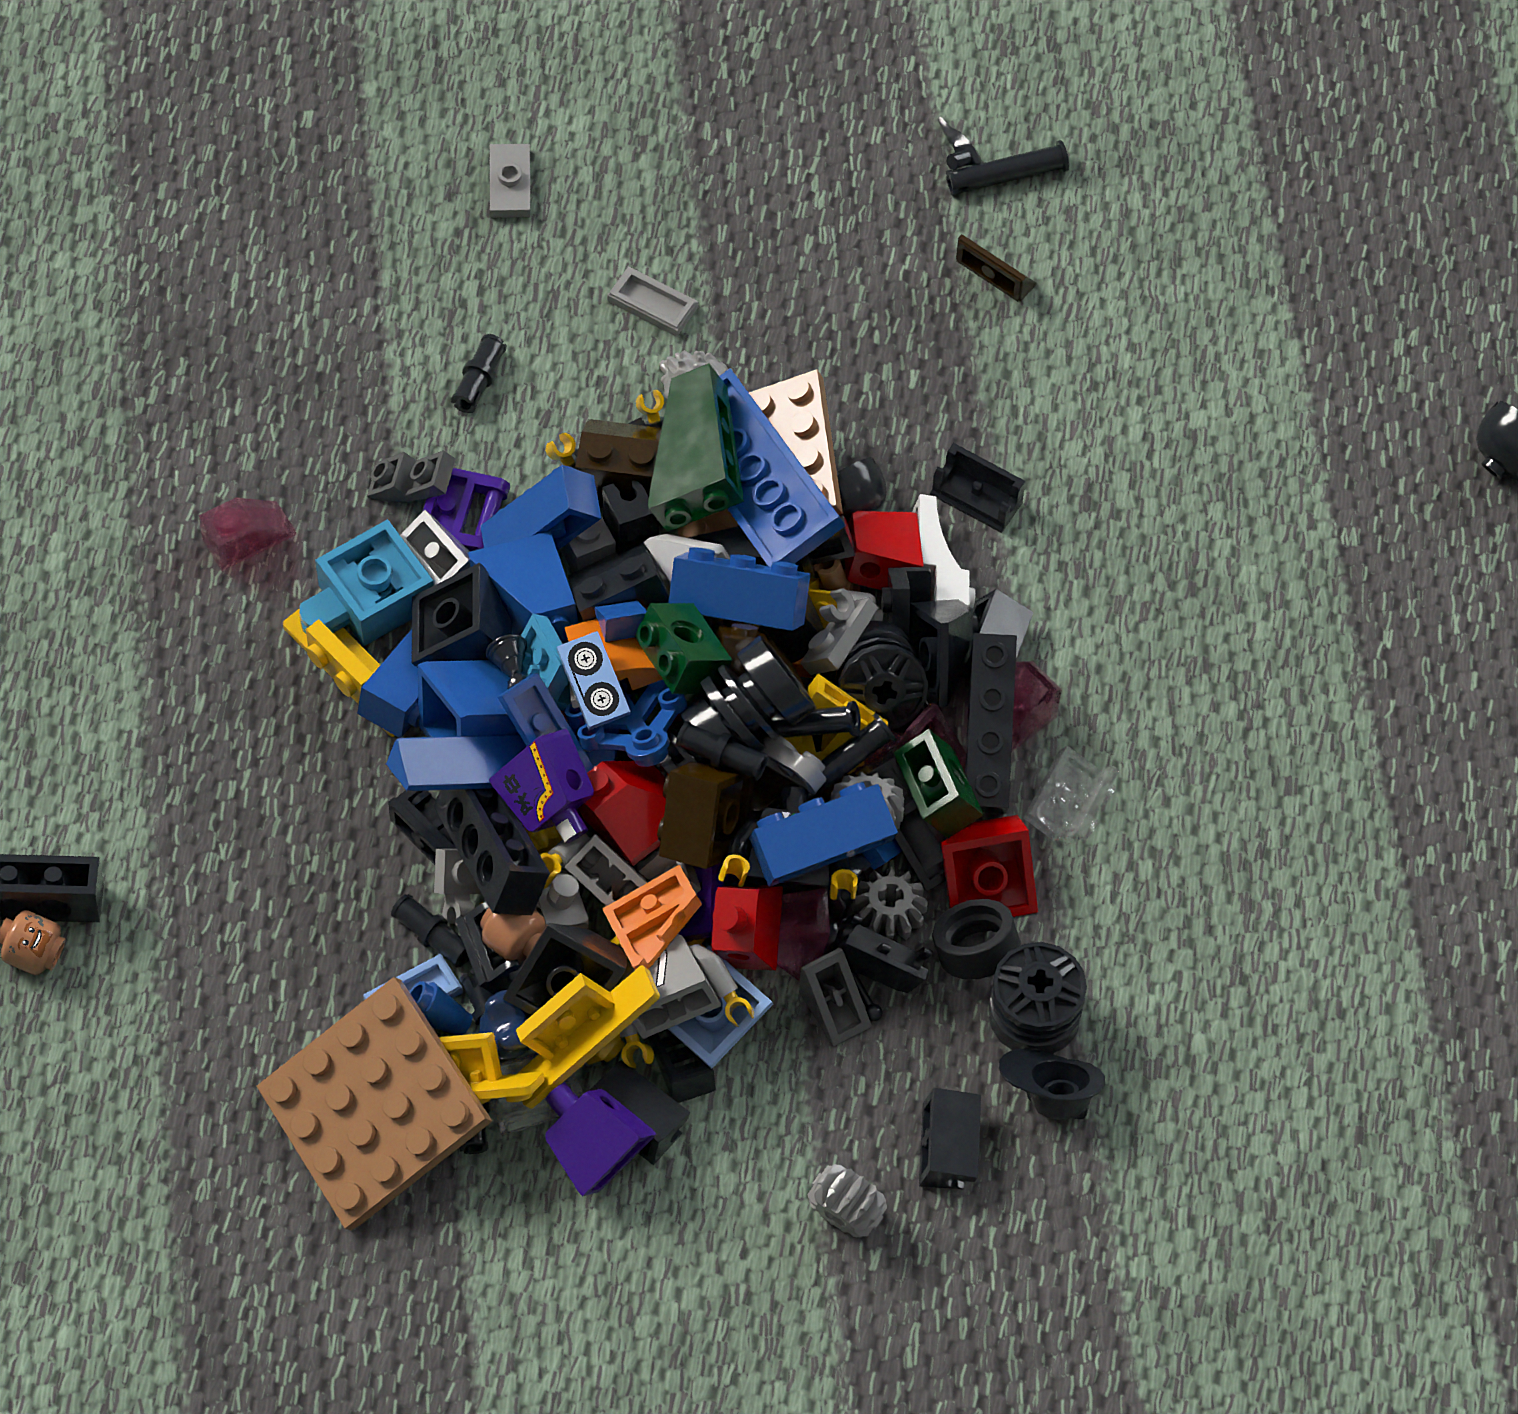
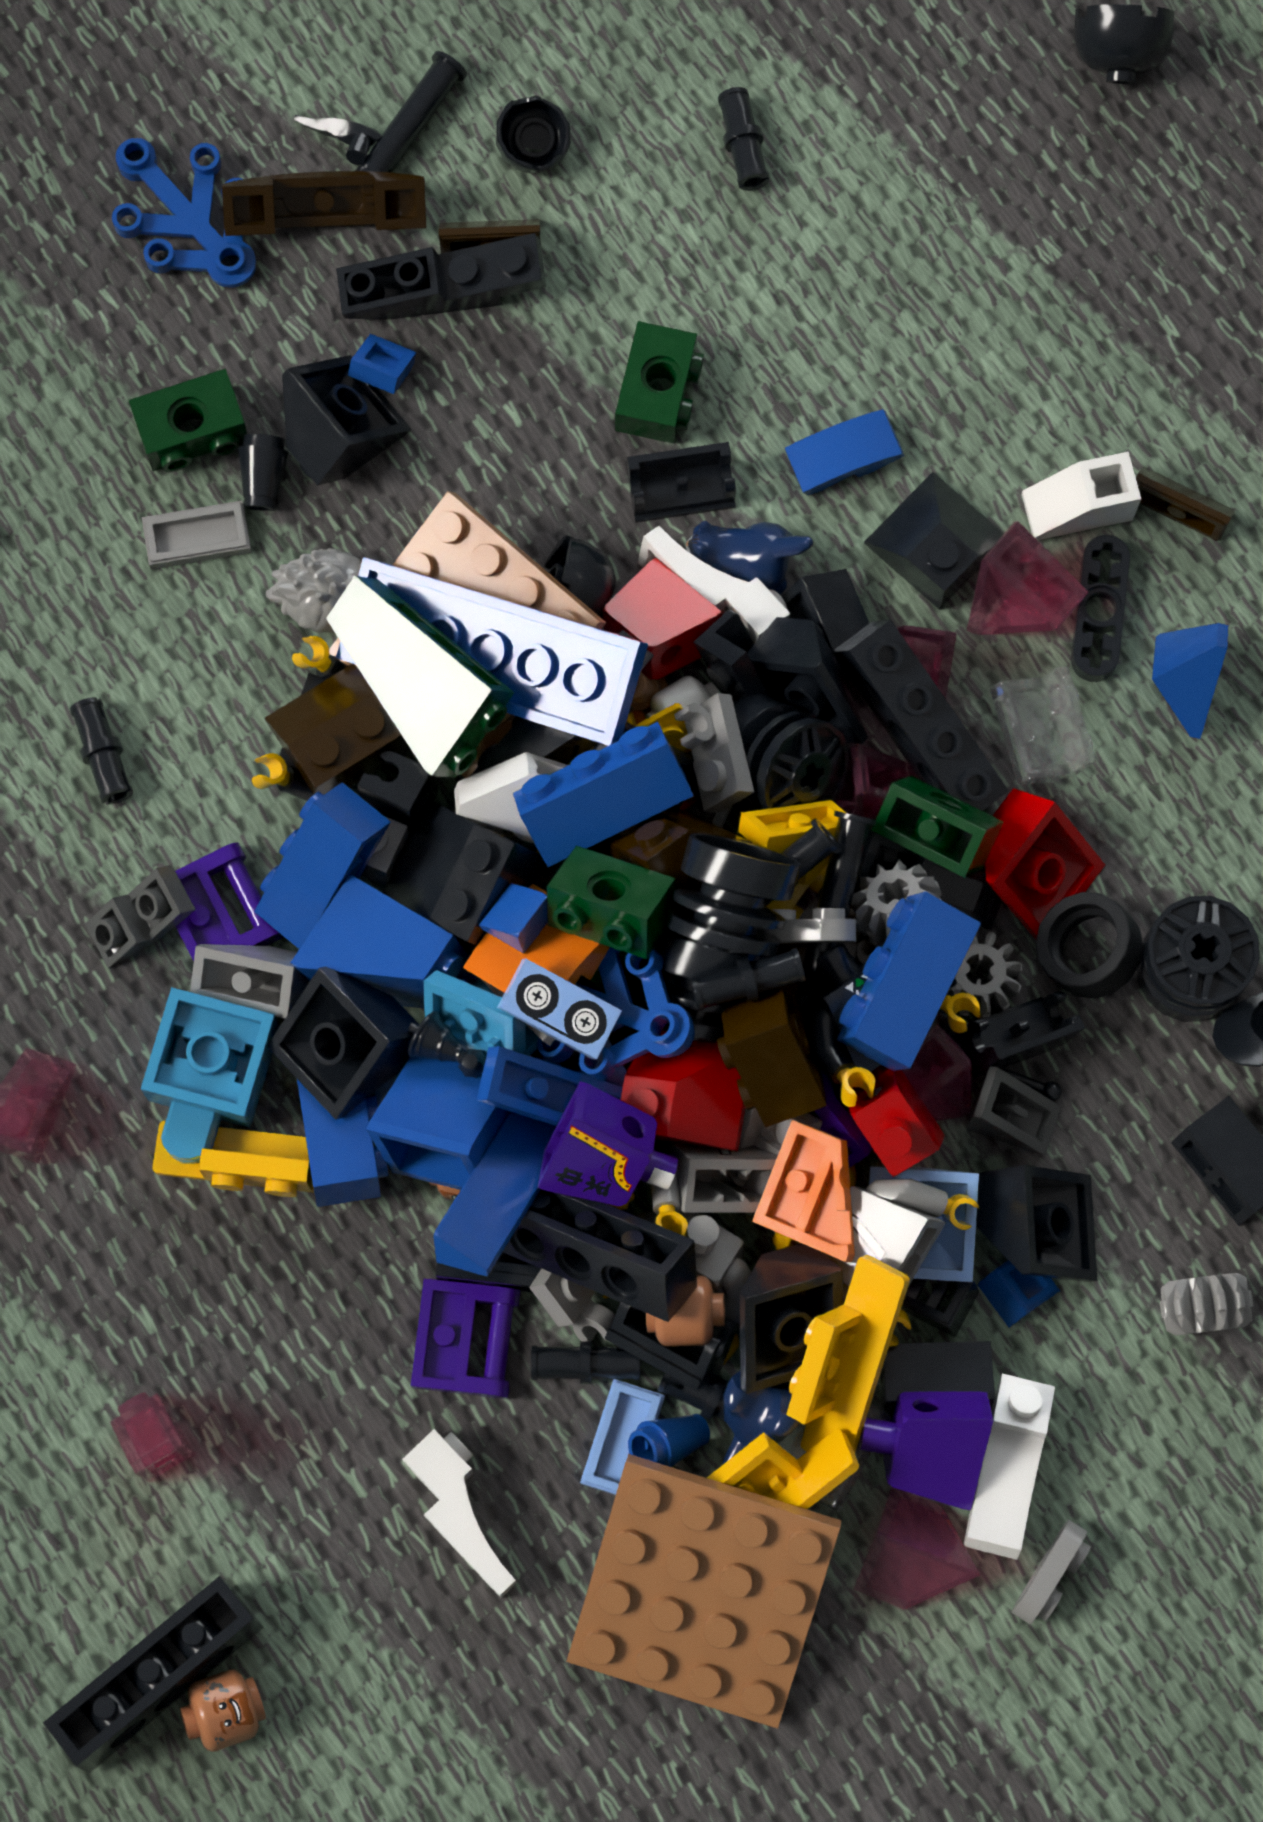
camera: 40 degrees left, 15 degrees up
(136, 762) = (150, 1436): none -> clear pink slope
(272, 944) = (444, 1472): none -> white slope
(367, 847) = (447, 1333): none -> dark purple plate
(522, 1193) = (913, 1553): none -> clear pink slope
(612, 1273) = (1064, 1554): none -> light grey plate
(633, 1194) = (1009, 1466): none -> white slope
(697, 217) = (201, 398): none -> dark green brick
(726, 292) = (262, 469): none -> black cone
(742, 1105) = (1015, 1293): none -> blue slope
(792, 1073) = (1040, 1220): none -> black slope
(798, 296) = (336, 420): none -> black slope
(819, 126) = (188, 217): none -> blue plant
(857, 288) = (382, 363): none -> blue tile
(906, 170) = (324, 199): none -> dark brown slope
(932, 267) = (441, 283): none -> black slope
(985, 560) = (749, 552): none -> dark blue animal
(1026, 404) = (658, 354): none -> dark green brick
(1078, 222) = (532, 125): none -> black hair
(1104, 548) = (843, 451): none -> blue slope
(1111, 646) = (934, 540): none -> black slope
(1135, 704) = (1022, 588): none -> clear pink slope
(1184, 745) = (1110, 645): none -> black beam
(1191, 837) = (1188, 671): none -> blue slope
(1209, 328) = (743, 139): none -> black pin
(1228, 685) = (1083, 497): none -> white slope
(1292, 740) = (1183, 504): none -> dark brown slope

